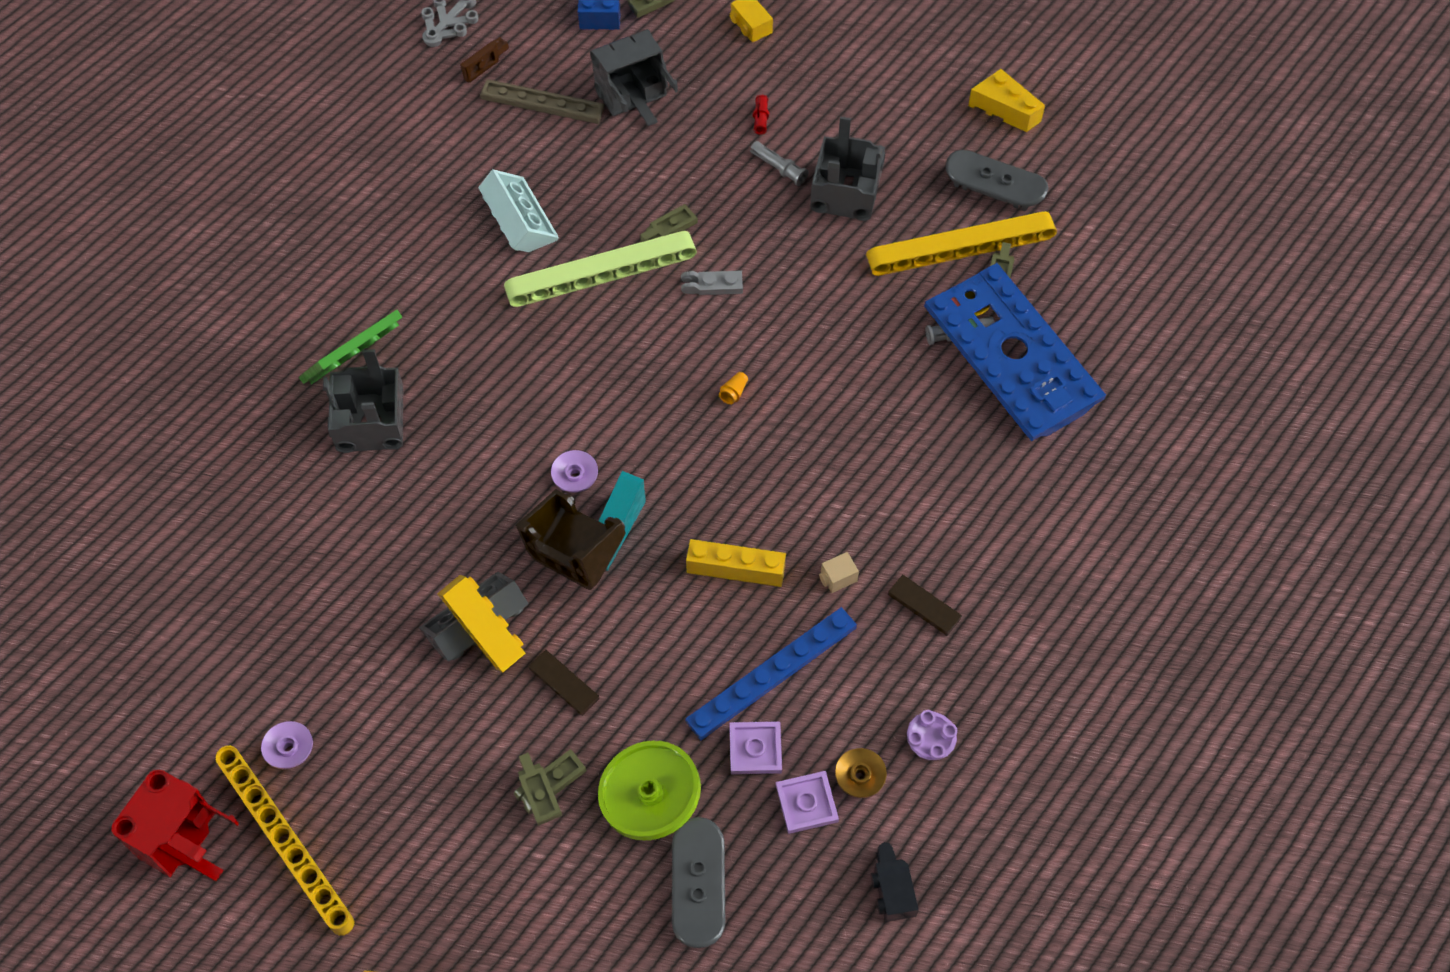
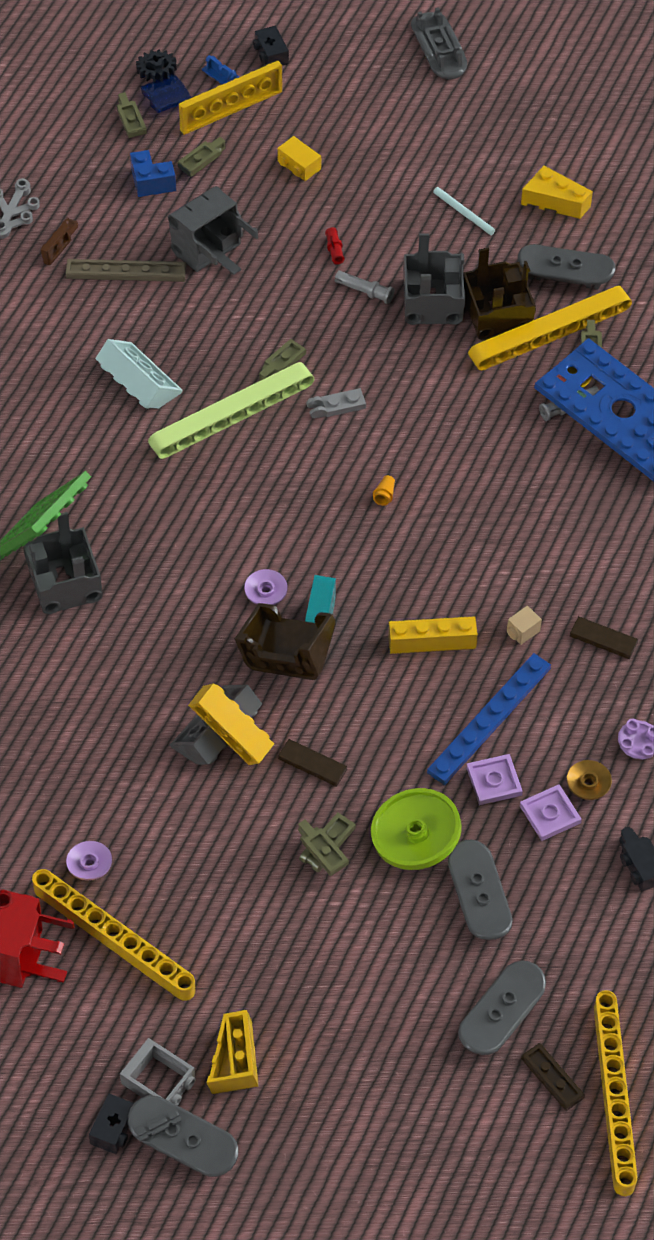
camera: 15 degrees left, 5 degrees down
(906, 102) = (464, 211): none -> light aqua bar
(908, 184) = (506, 288): none -> dark brown piece

